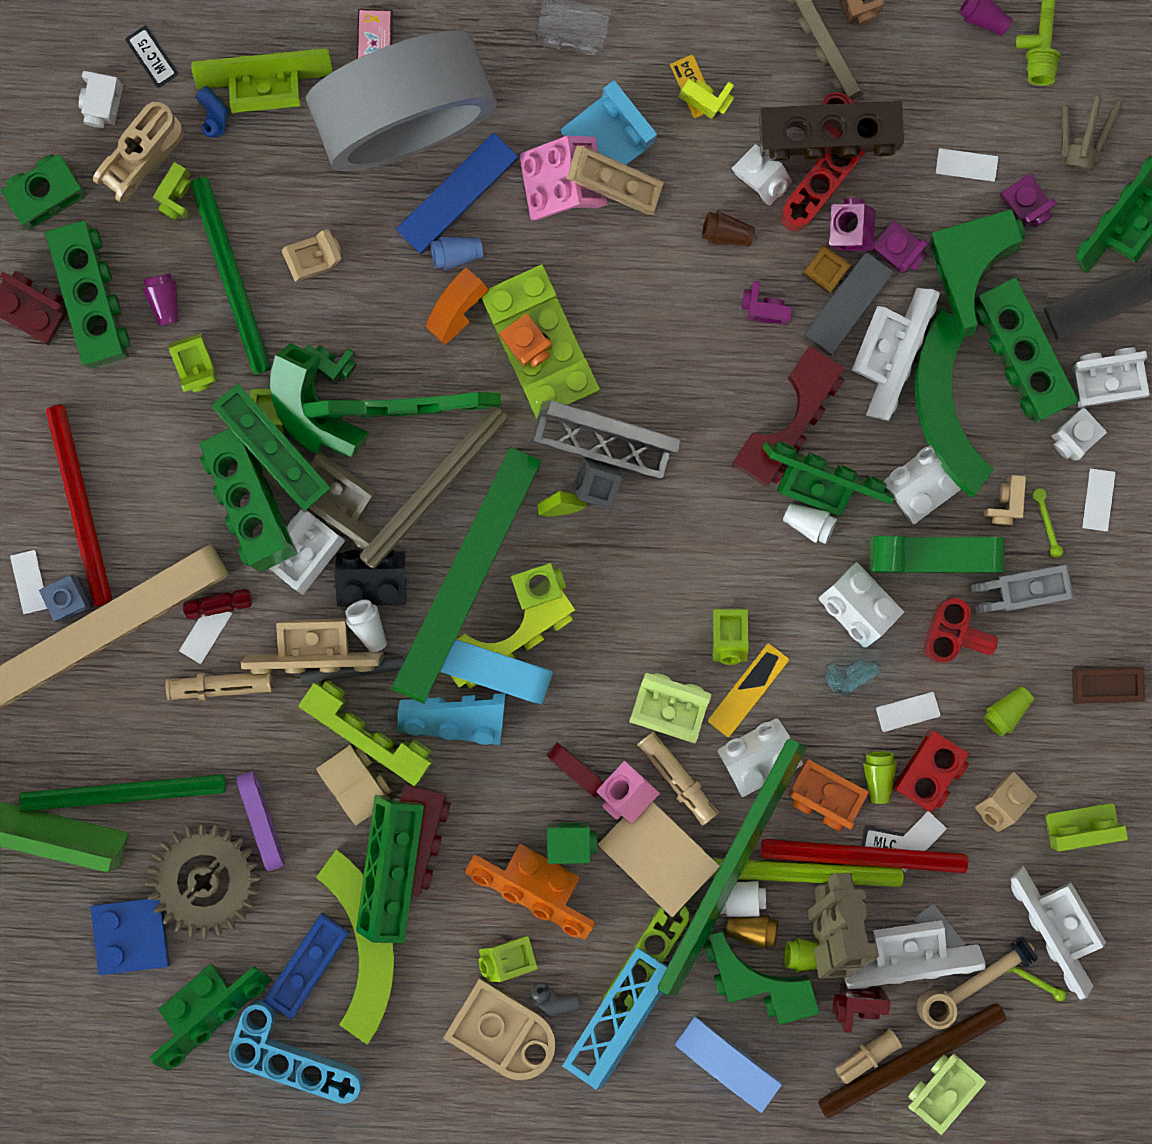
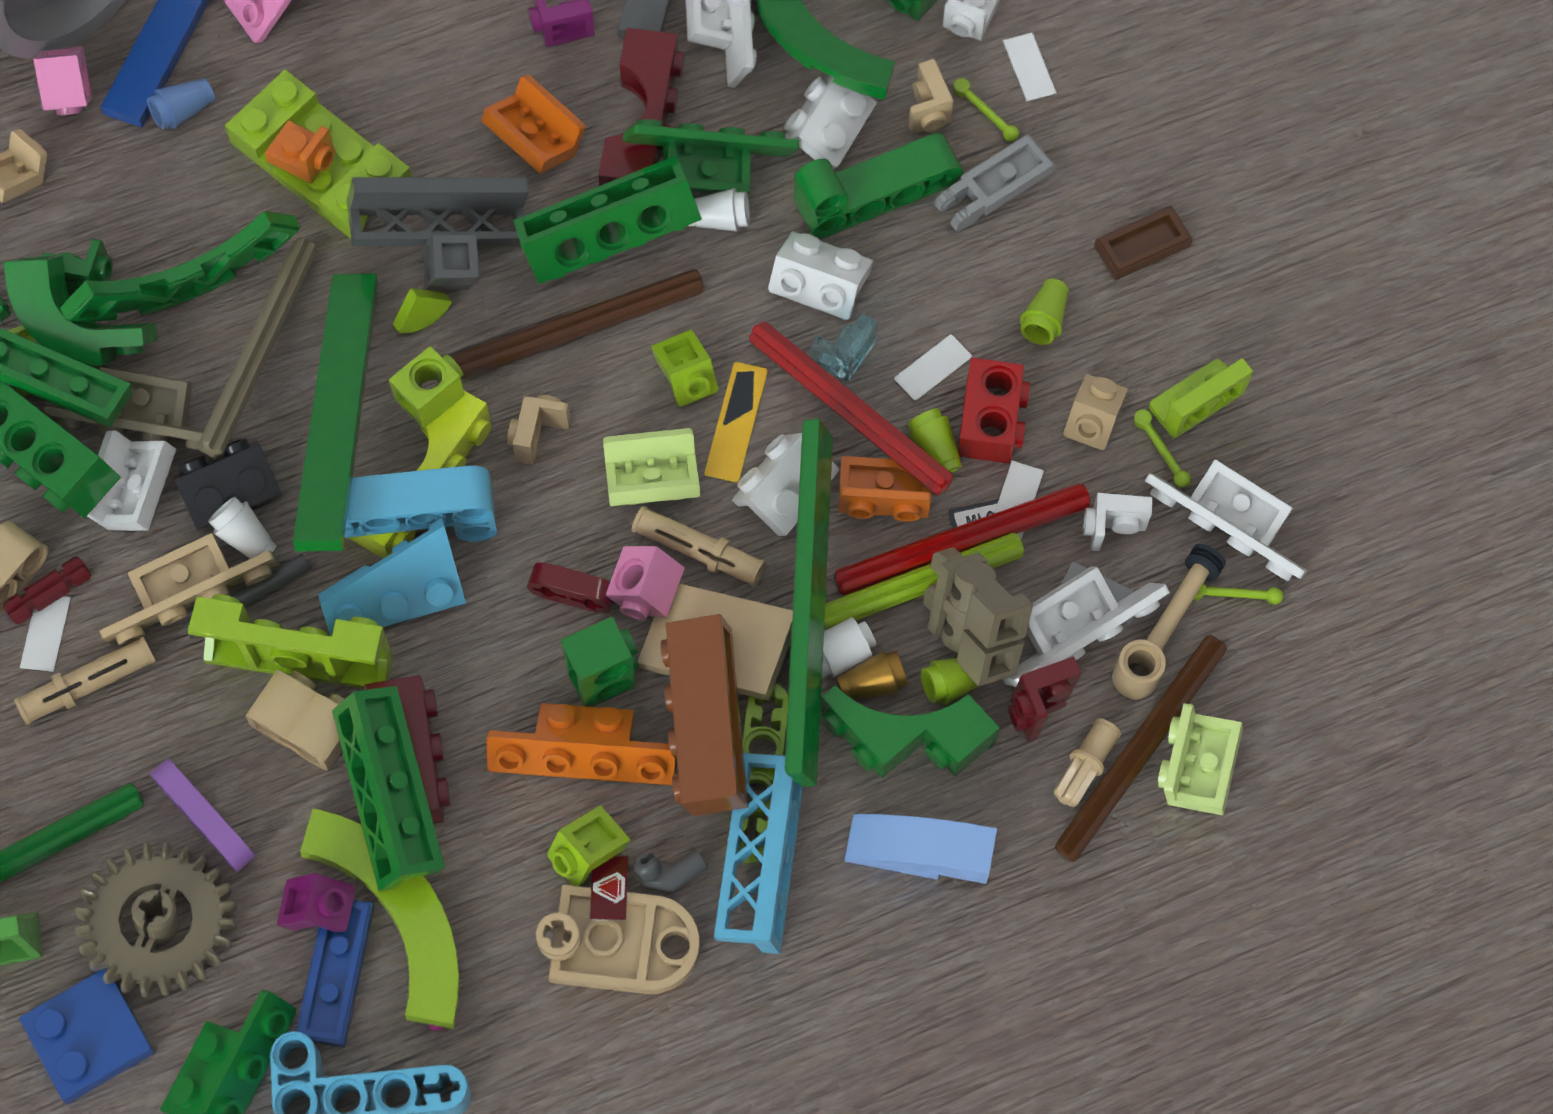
camera: 30 degrees left, 20 degrees down
(310, 919) = (316, 902): none -> magenta bracket
(376, 197) = (63, 80): none -> bright pink brick
(448, 313) = (199, 161): orange slope -> none
(449, 1018) = (571, 929): none -> tan bush
(508, 999) = (609, 890): none -> dark red sticker
(594, 637) = (534, 414): none -> tan bracket
(623, 916) = (705, 715): none -> dark orange brick
(670, 565) = (579, 323): none -> reddish brown axle
(706, 392) = (535, 125): none -> orange bracket
(723, 503) = (586, 216): none -> green brick
(831, 725) = (851, 408): none -> red axle
(957, 634) = (941, 255): red beam -> none
(983, 892) = (1120, 512): none -> white bracket
(1037, 822) = (1143, 420): none -> lime hinge

